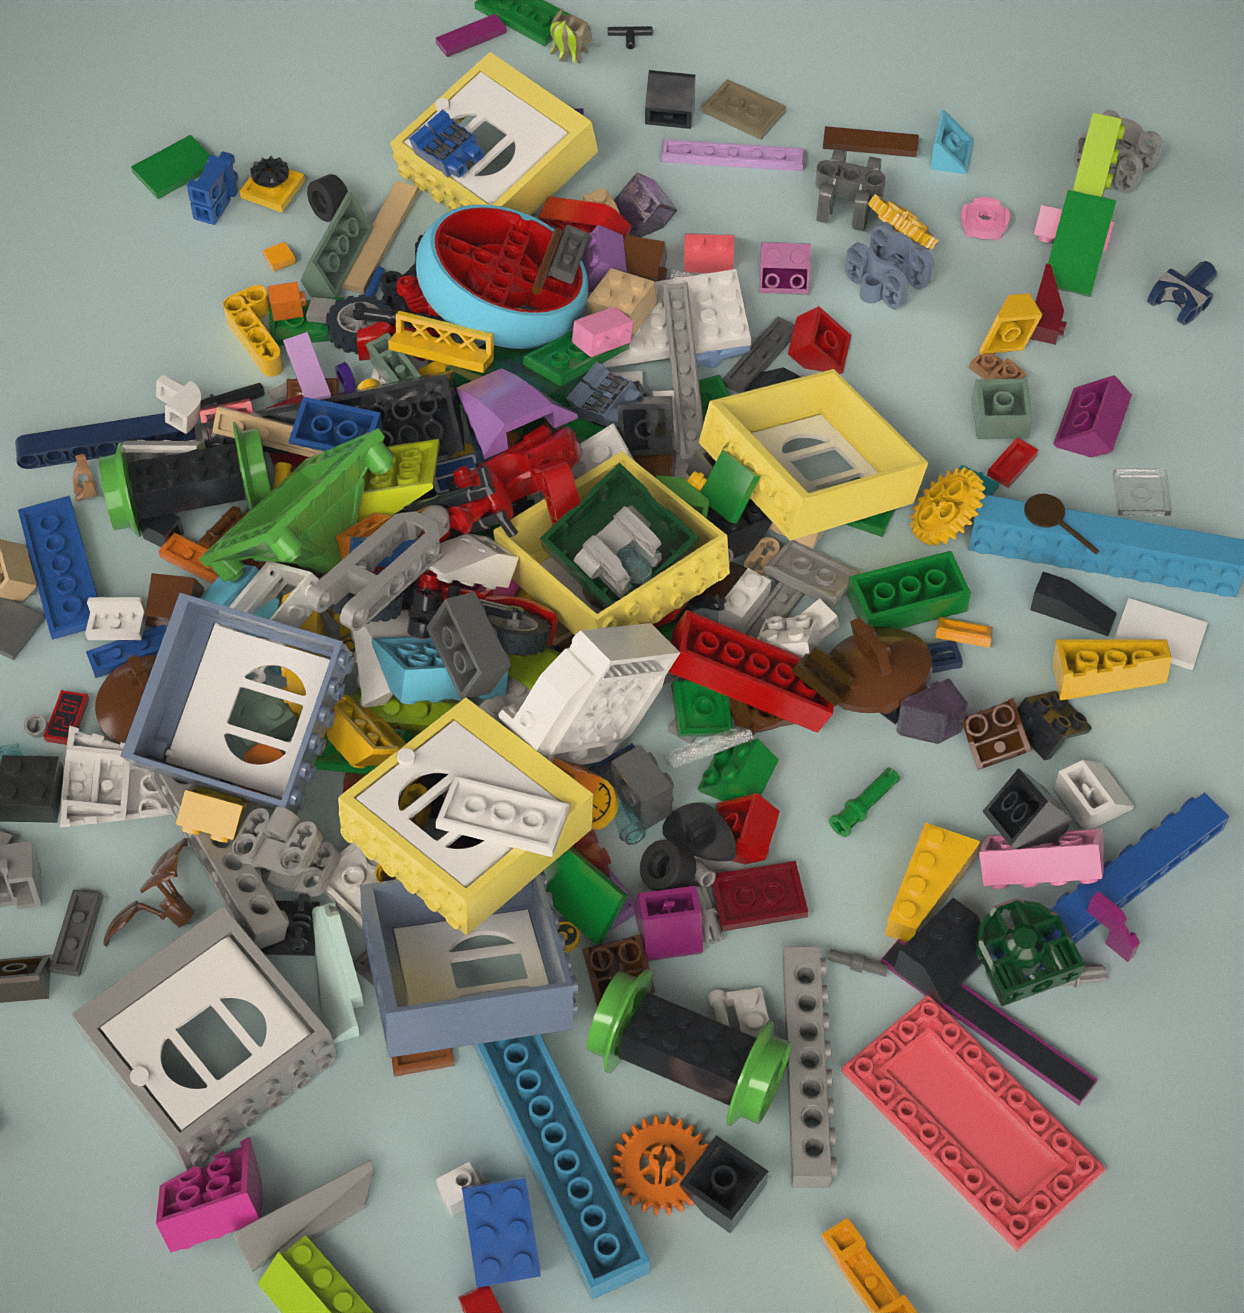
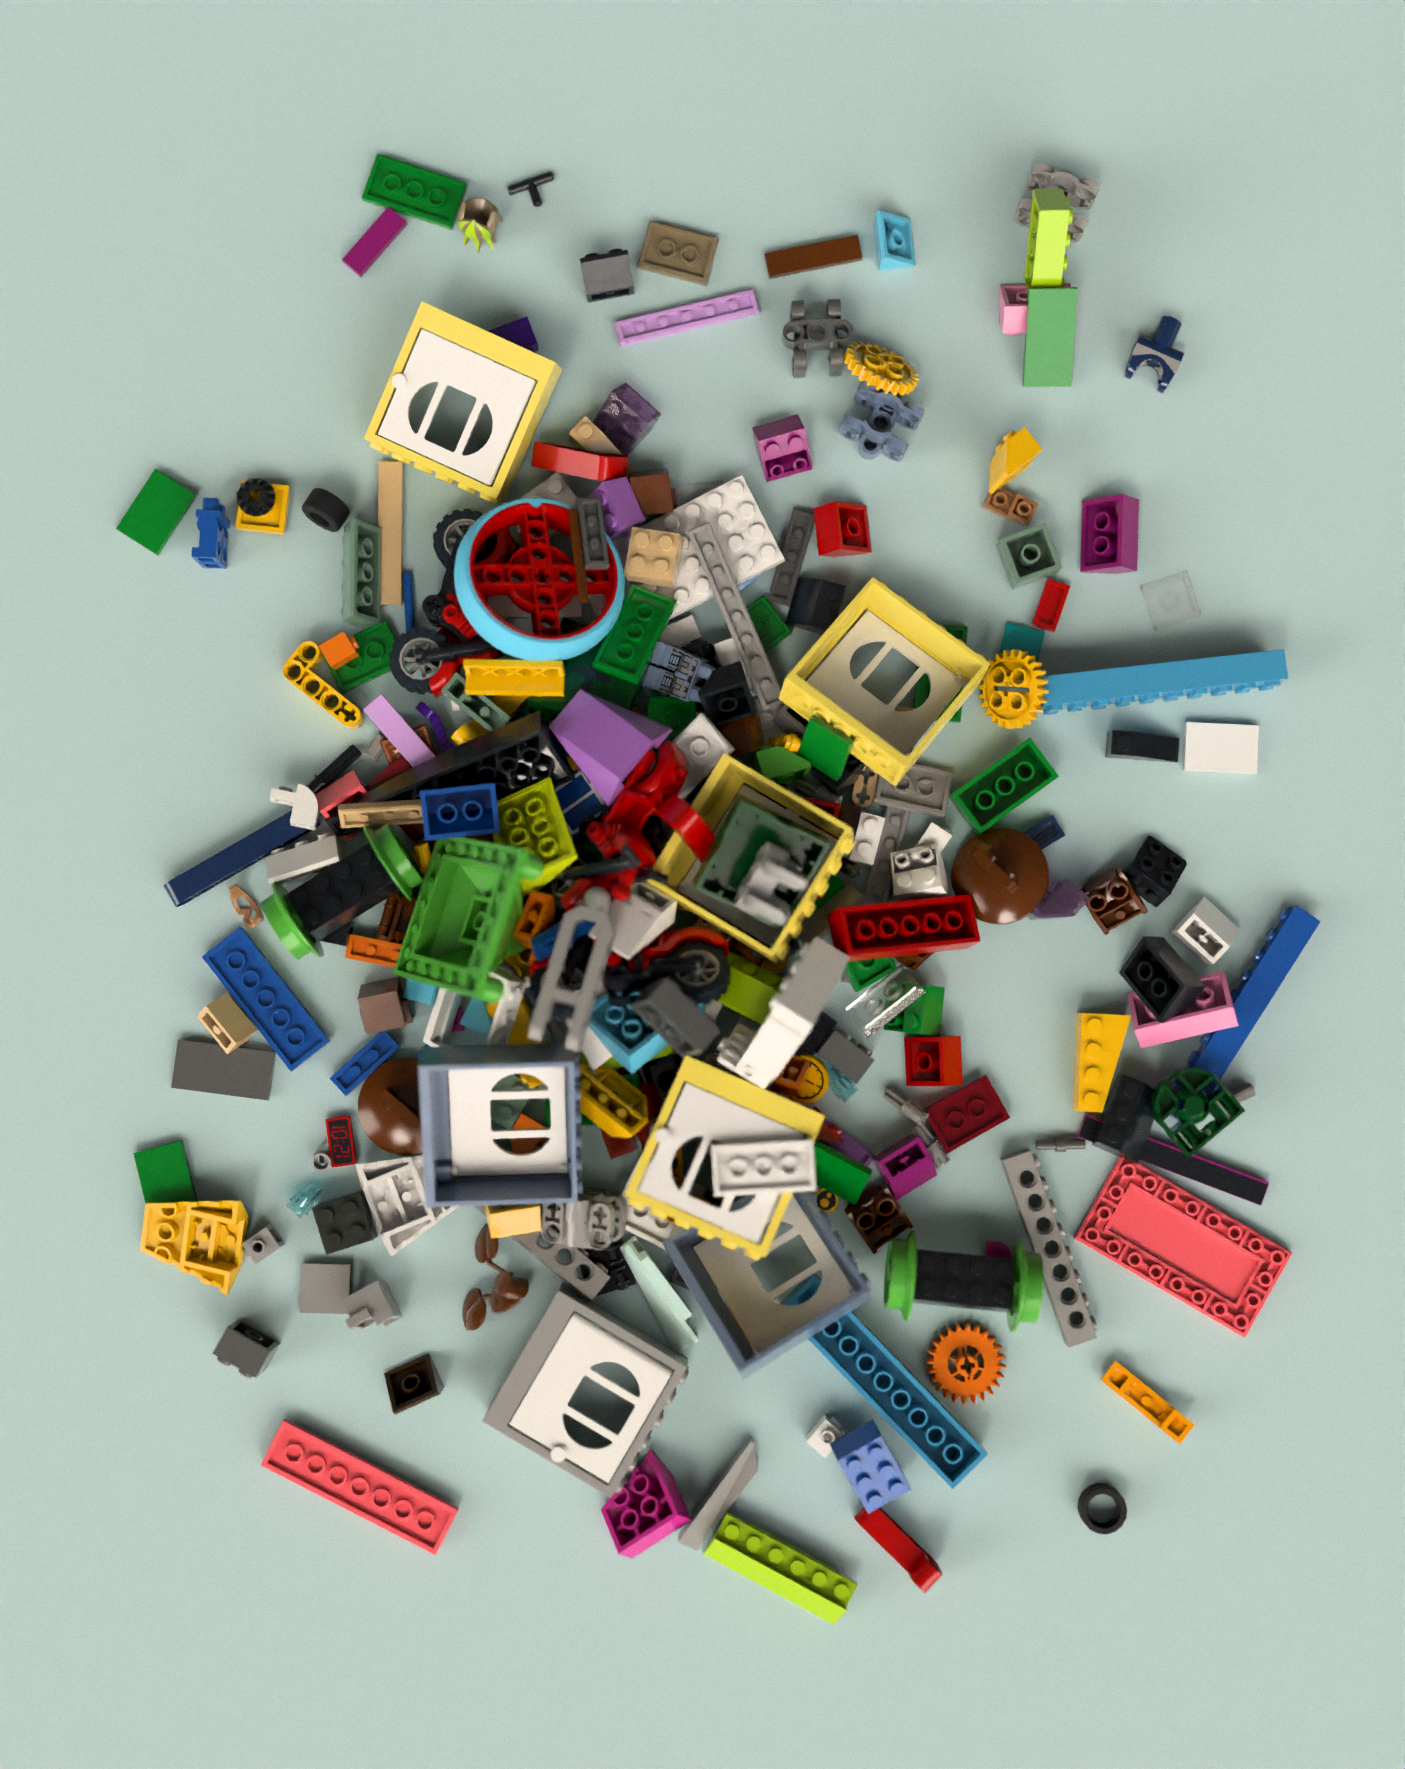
camera: 20 degrees left, 30 degrees up
(76, 933) = (440, 1328): dark grey tile -> none
(116, 618) = (344, 1046): white bracket -> none
(279, 256) = (305, 589): light orange tile -> none
(318, 309) = (375, 646): light grey tile -> none
(446, 145) = (434, 437): blue hips -> none
(602, 331) = (653, 609): bright pink brick -> none
(635, 565) = (785, 894): clear light blue cone -> none
(654, 864) = (880, 1128): black tyre -> none
(701, 831) = (904, 1078): black shield -> none
(708, 252) = (705, 449): coral slope -> none
(724, 1183) = (1020, 1370): black slope -> none
(748, 1008) = (992, 1220): white plate -> none
(825, 674) = (963, 908): dark brown slope -> none
(856, 809) = (1019, 1009): green pin -> none
(964, 632) = (1058, 805): light orange tile -> none
(976, 227) = (958, 312): bright pink plate -> none
(1049, 511) = (1104, 677): dark brown piece -> none
(1052, 310) = (1038, 418): dark red slope -> none
(1108, 665) = (1188, 805): yellow wedge -> none
(1113, 918) = (1253, 1054): magenta tile -> none

